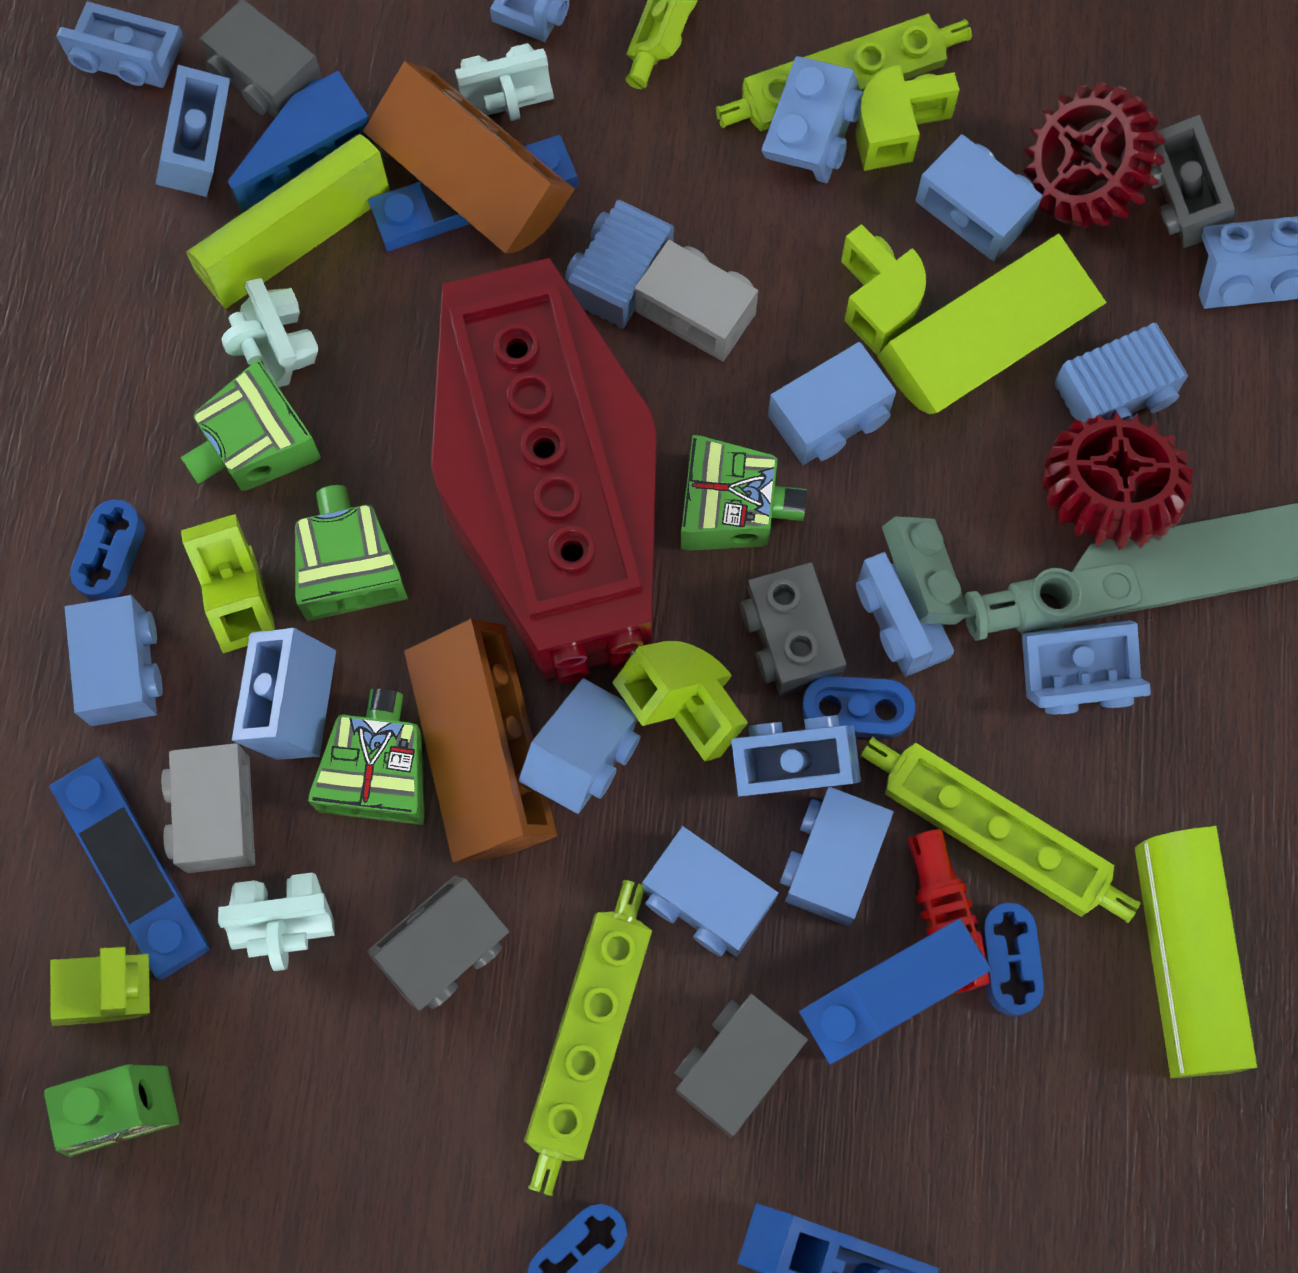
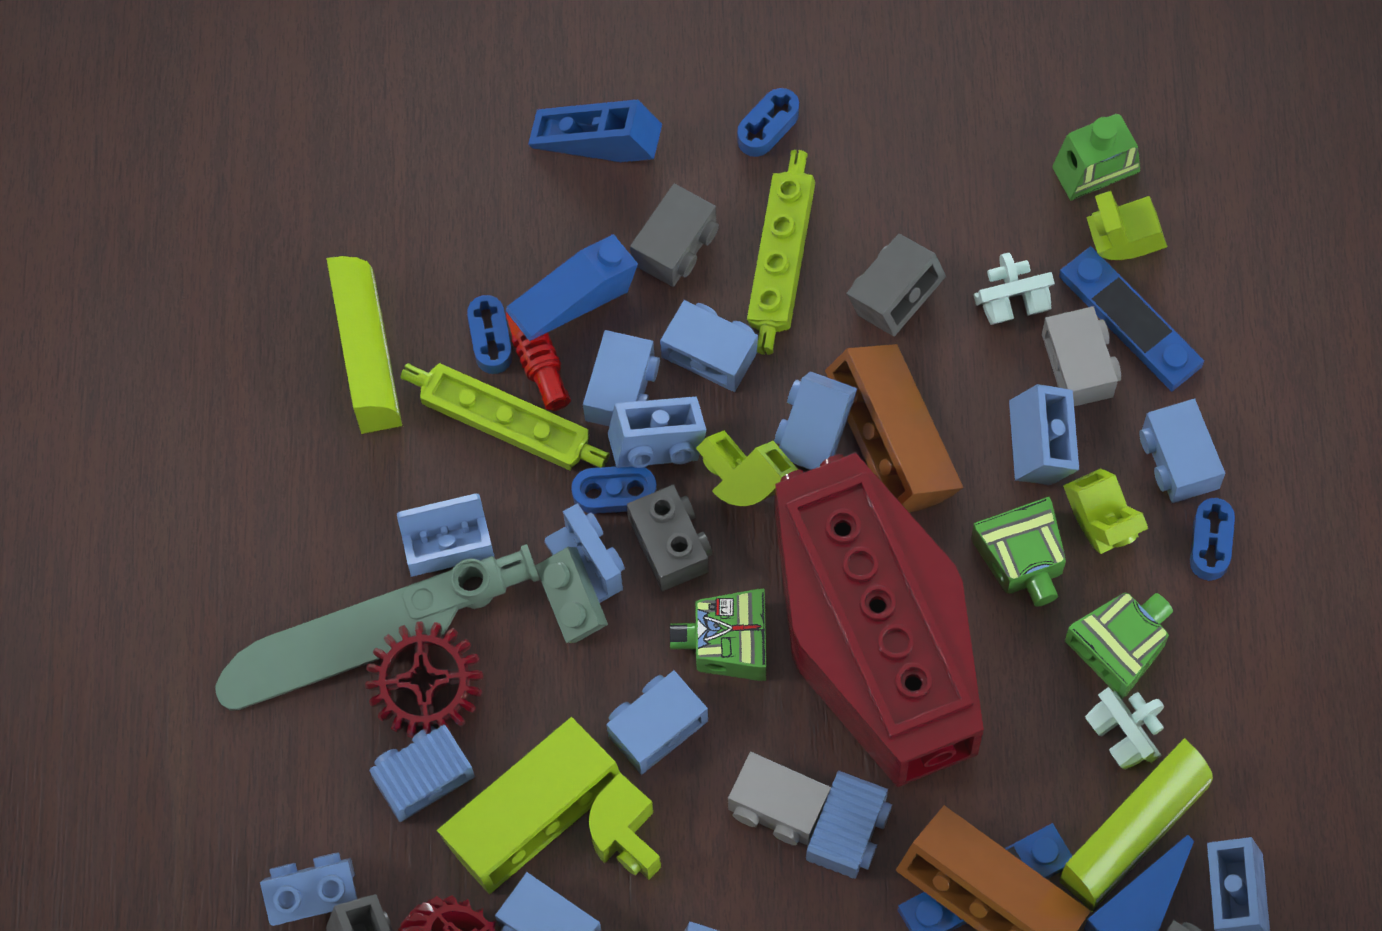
camera: 175 degrees right, 5 degrees down
(373, 765) = (966, 400): torso -> none

